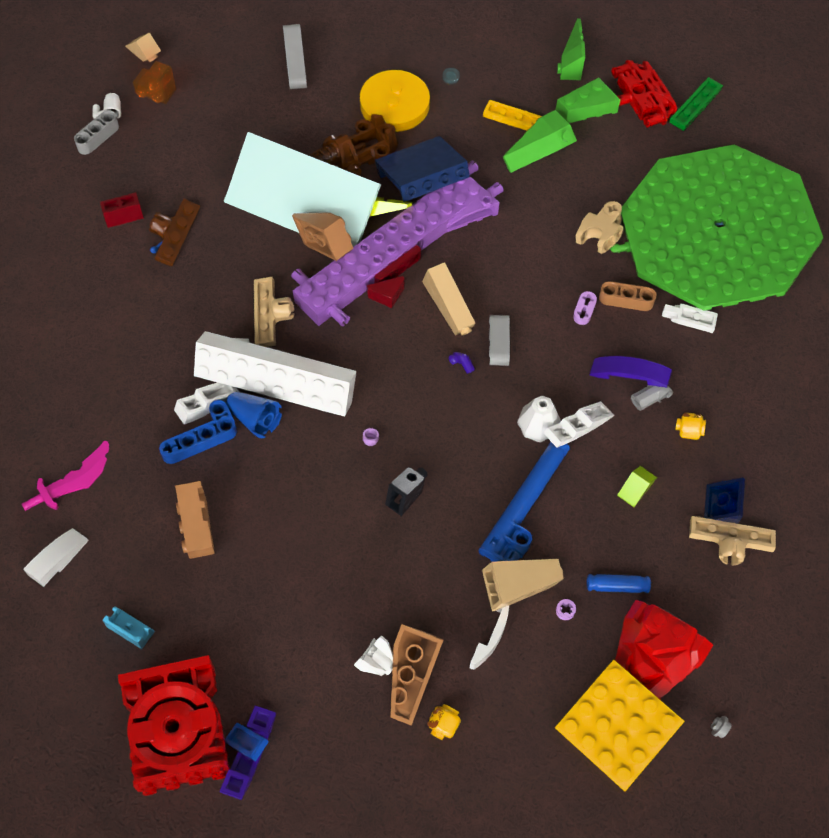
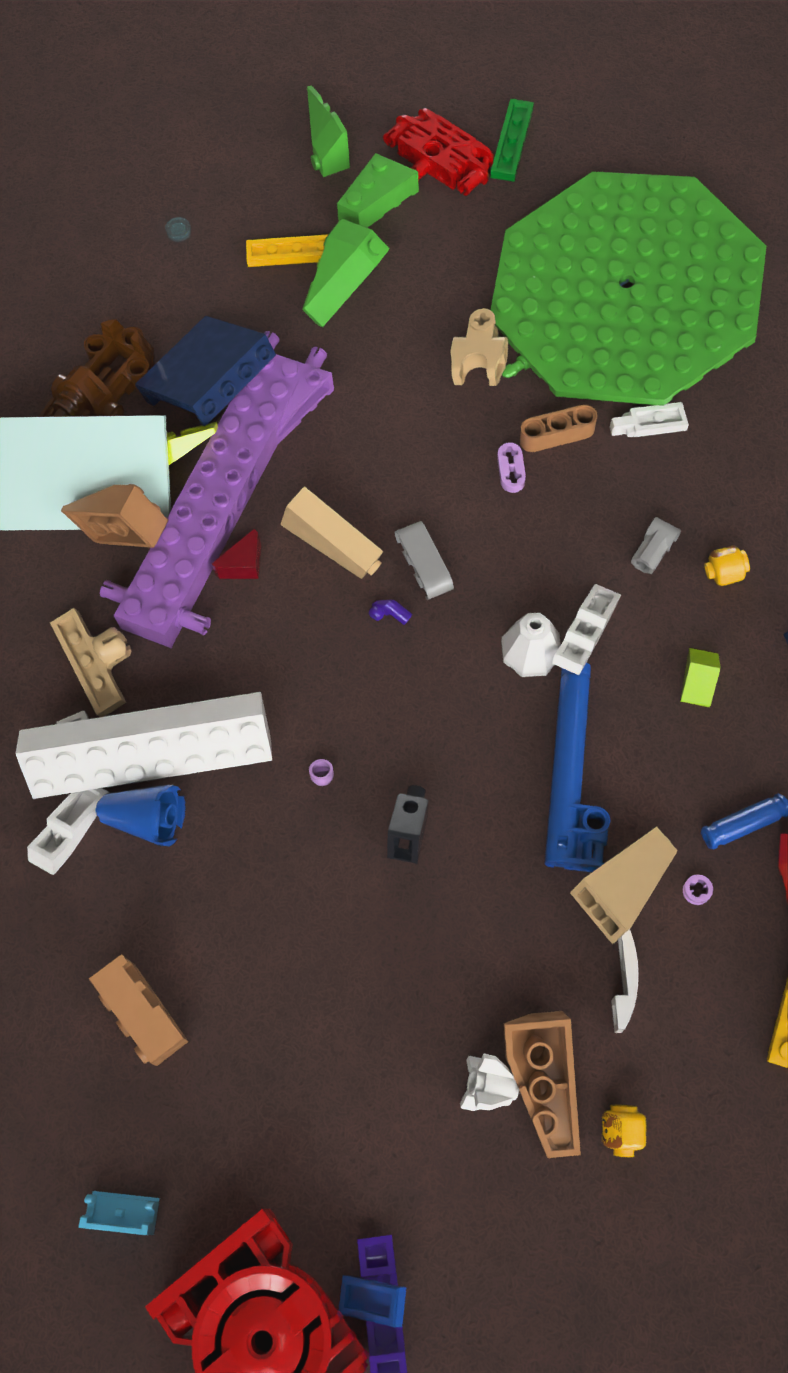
camera: 20 degrees left, 5 degrees up
(197, 435) = (80, 881): blue beam -> none
(397, 97) = (122, 286): yellow brick -> none
(399, 265) = (240, 516): dark red tile -> none
(633, 368) = (615, 523): dark purple slope -> none

